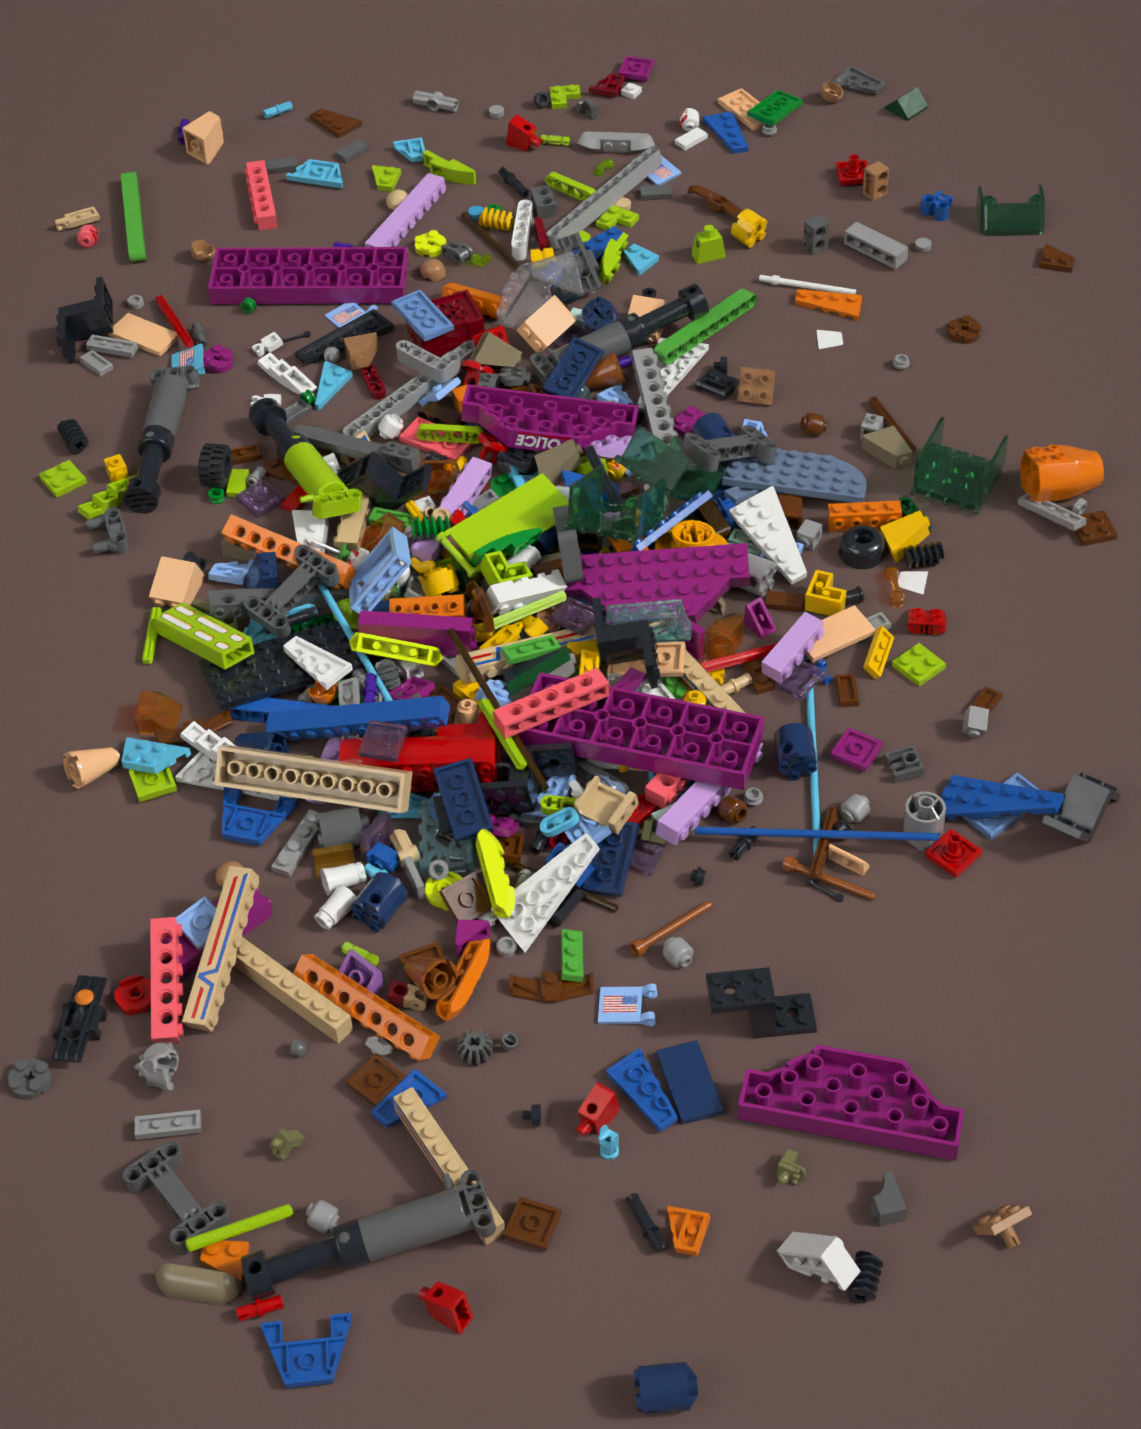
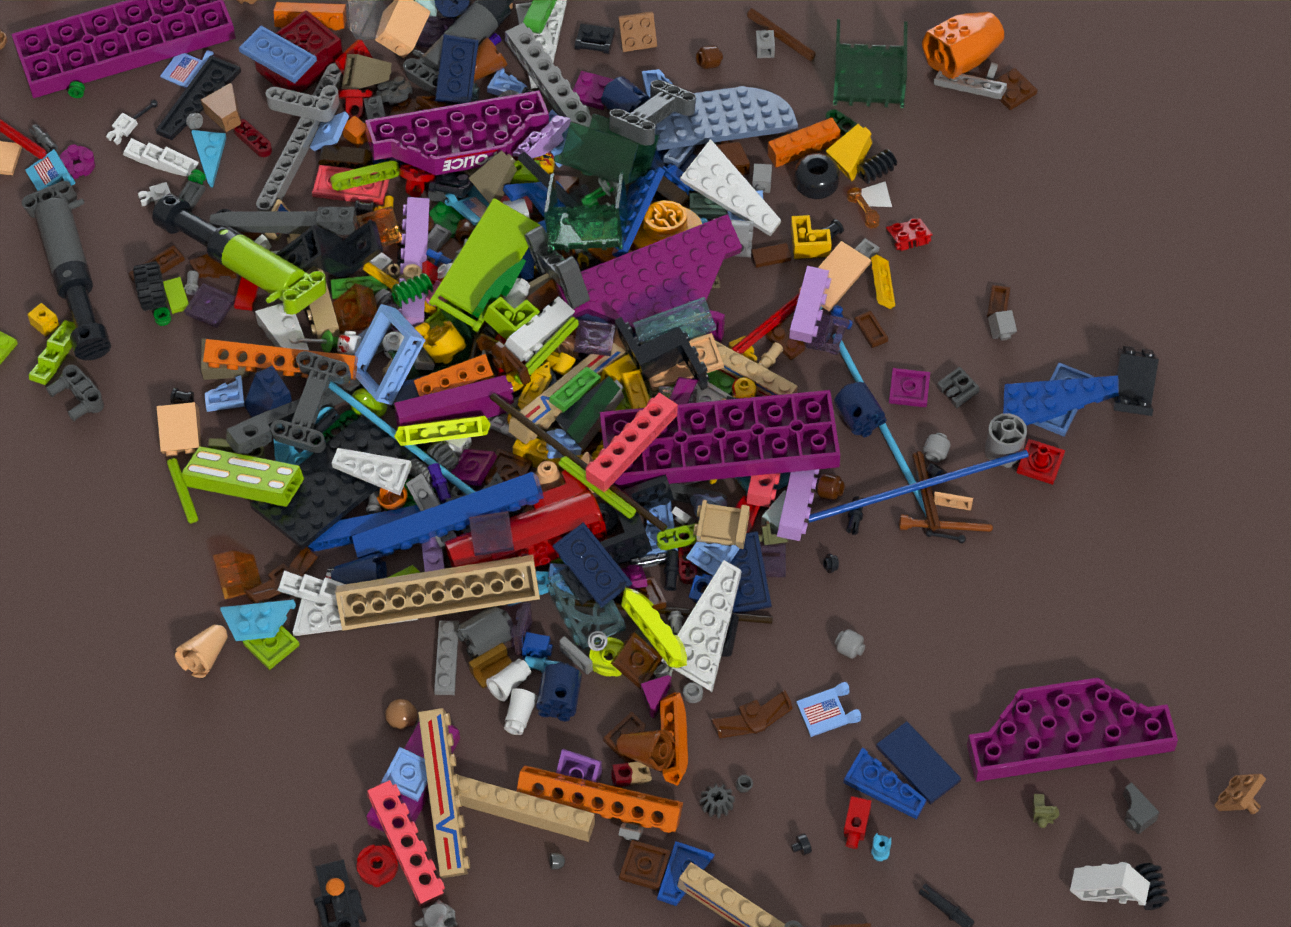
camera: 25 degrees left, 10 degrees up
(251, 824) = (390, 655): blue wing -> none
(371, 958) = (551, 747): lime axle -> none
(390, 426) = (301, 185): white head -> none
(404, 847) = (549, 627): tan piece -> none
(559, 822) = (684, 553): medium azure plate -> none
(571, 955) = (757, 680): bright green plate -> none
(640, 946) = (813, 649): dark orange piece -> none
(688, 1229) = (984, 899): orange wing -> none
(722, 365) = (591, 16): black tile -> none
(725, 636) = (739, 314): clear orange slope -> none
(753, 797) = (843, 469): light grey plate -> none
(756, 994) = (951, 668): black bracket -> none
(758, 618) = (759, 283): magenta slope -> none
(888, 447) = (790, 60): dark tan slope -> none
(919, 664) = (922, 281): lime plate -> none

